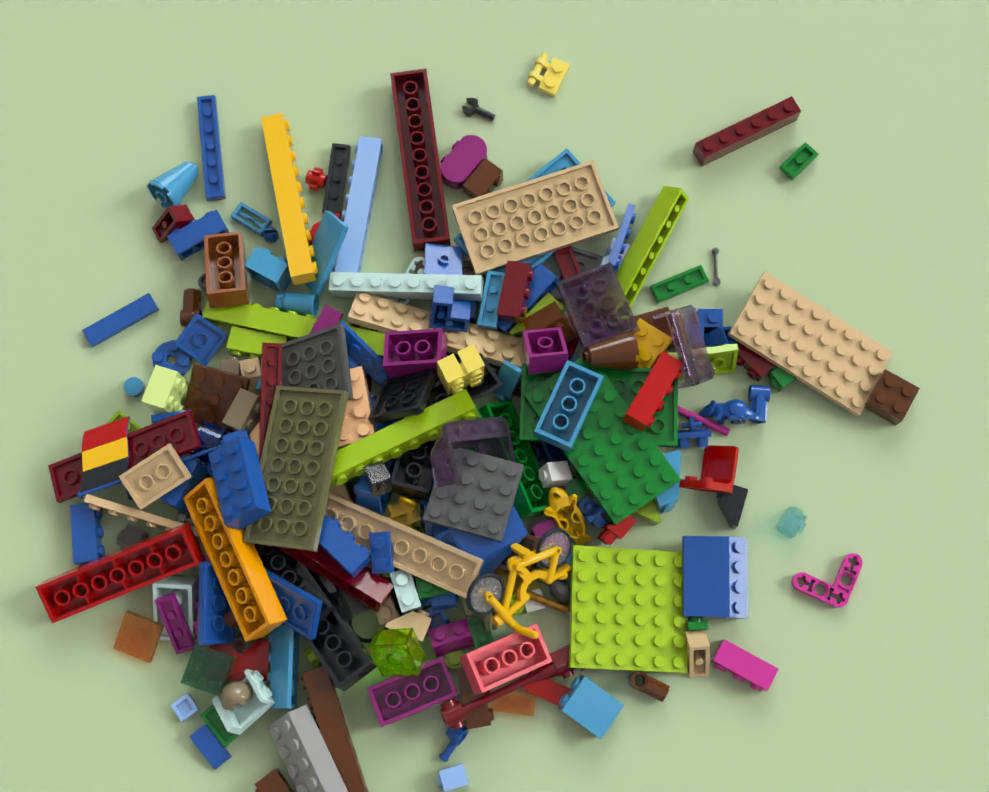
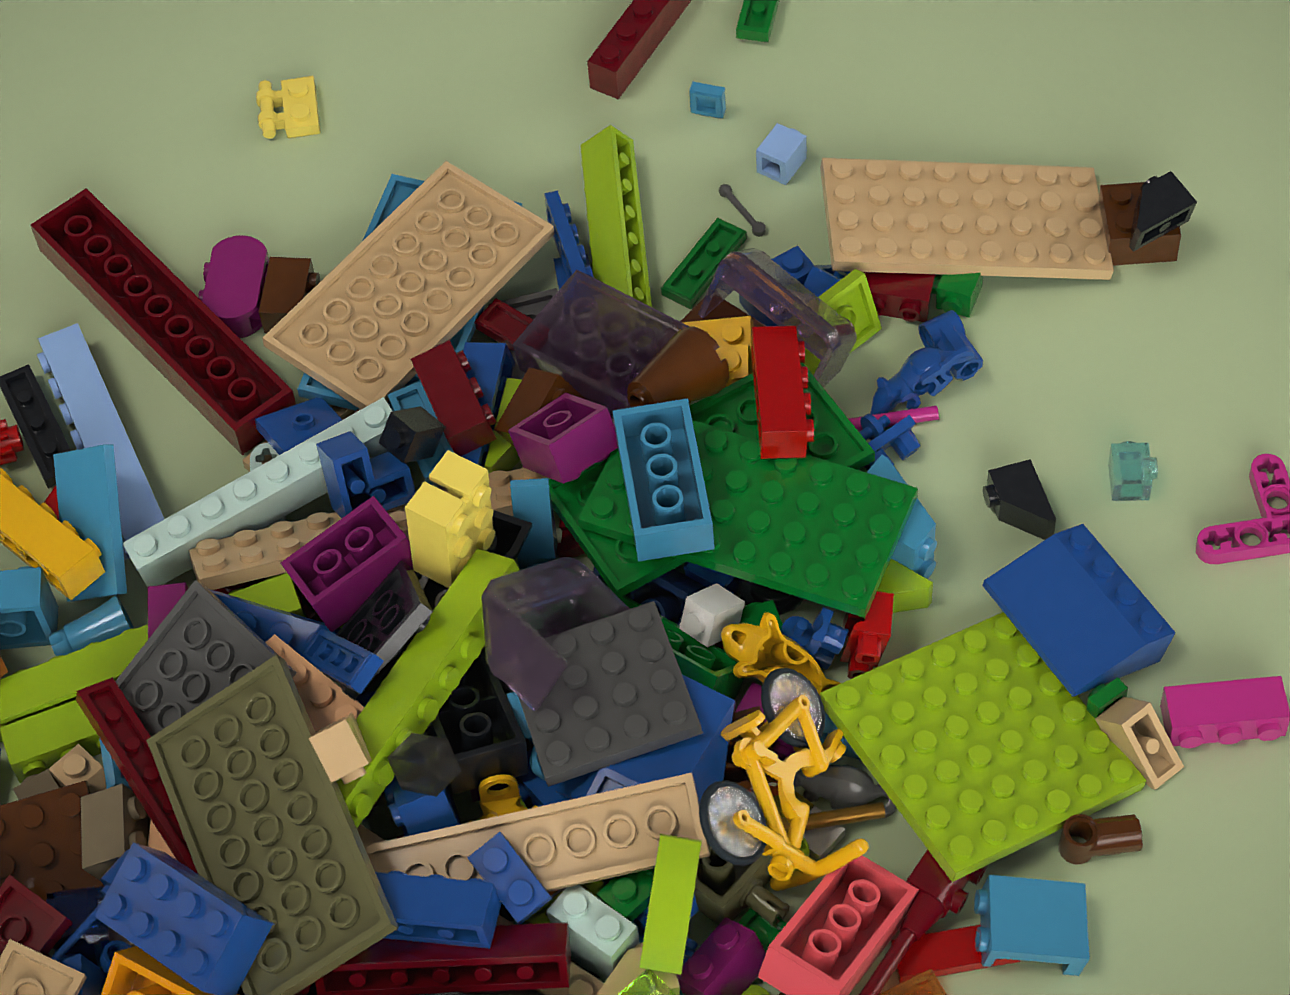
camera: 30 degrees left, 20 degrees down
(345, 451) = (341, 749): none -> tan slope
(378, 401) = (342, 660): none -> blue tile
(437, 609) = (670, 904): none -> lime slope
(477, 110) = (204, 212): black bar -> none
(481, 303) = (411, 434): none -> black brick
(717, 470) = (961, 465): red piece -> none
(739, 197) = (707, 100): none -> dark azure tile
(753, 249) = (781, 153): none -> light blue brick
(899, 404) = (1160, 209): none -> black slope

